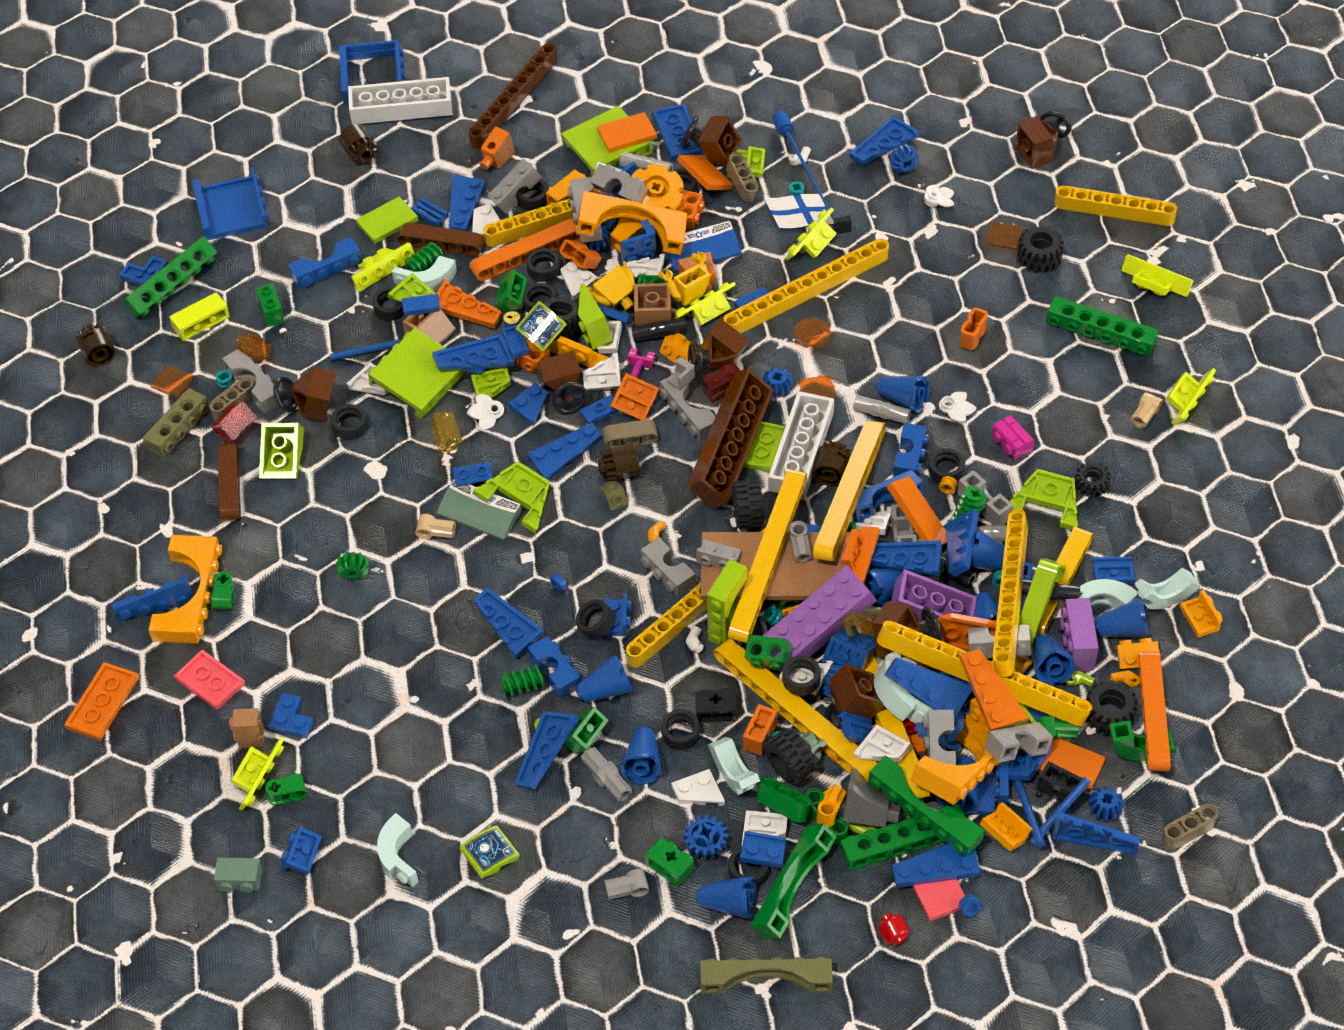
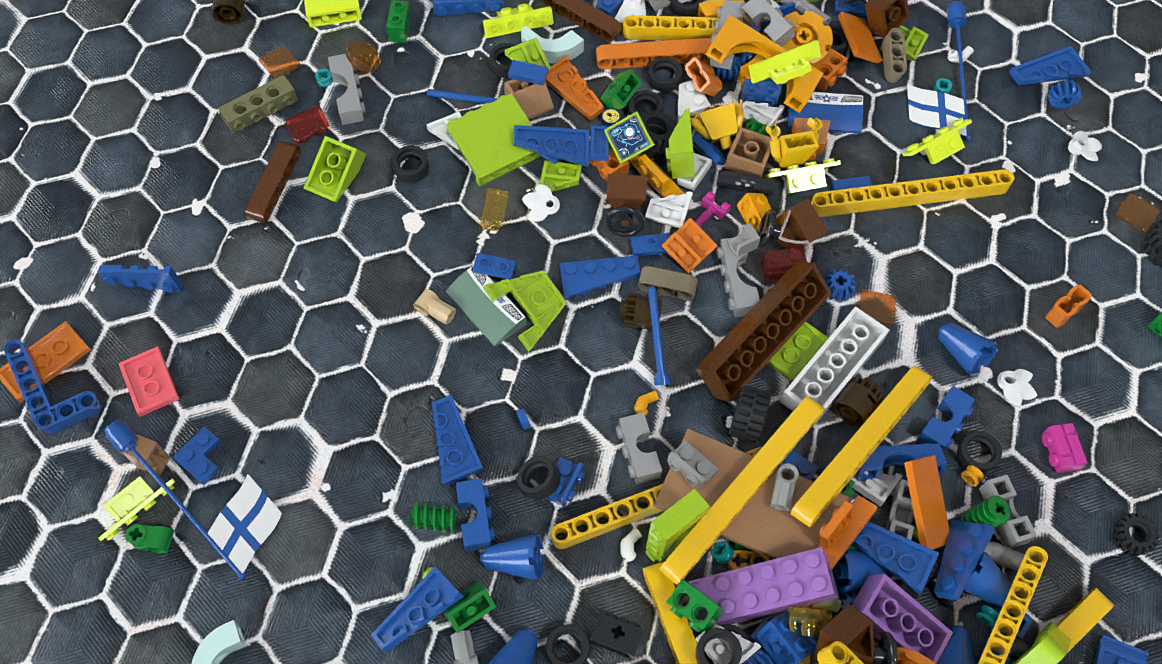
camera: 20 degrees right, 10 degrees up
(122, 721) = (40, 393): none -> blue beam
(186, 623) = (160, 311): light orange arch -> none
(223, 591) = (207, 295): green piece -> none
(238, 391) = (322, 96): dark tan beam -> none
(238, 874) = (54, 616): sand green brick -> none
(301, 850) = (127, 618): blue bracket -> none
(309, 393) = (388, 121): reddish brown piece -> none
(352, 565) = (335, 317): green gear -> none
(358, 750) = (240, 524): none -> flag
(423, 258) = (556, 27): green piece -> none
(529, 403) = (587, 210): blue wing -> none
(614, 494) = (622, 342): olive bracket -> none
(652, 216) = (786, 65): none -> neon yellow bracket
(660, 507) = (661, 376): none -> blue piece
(812, 332) = (897, 243): clear orange tile -> none
(842, 224) = (974, 140): black tile -> none
(881, 409) = (935, 358): light grey axle -> none
(1050, 491) = (1085, 531): lime wing -> none

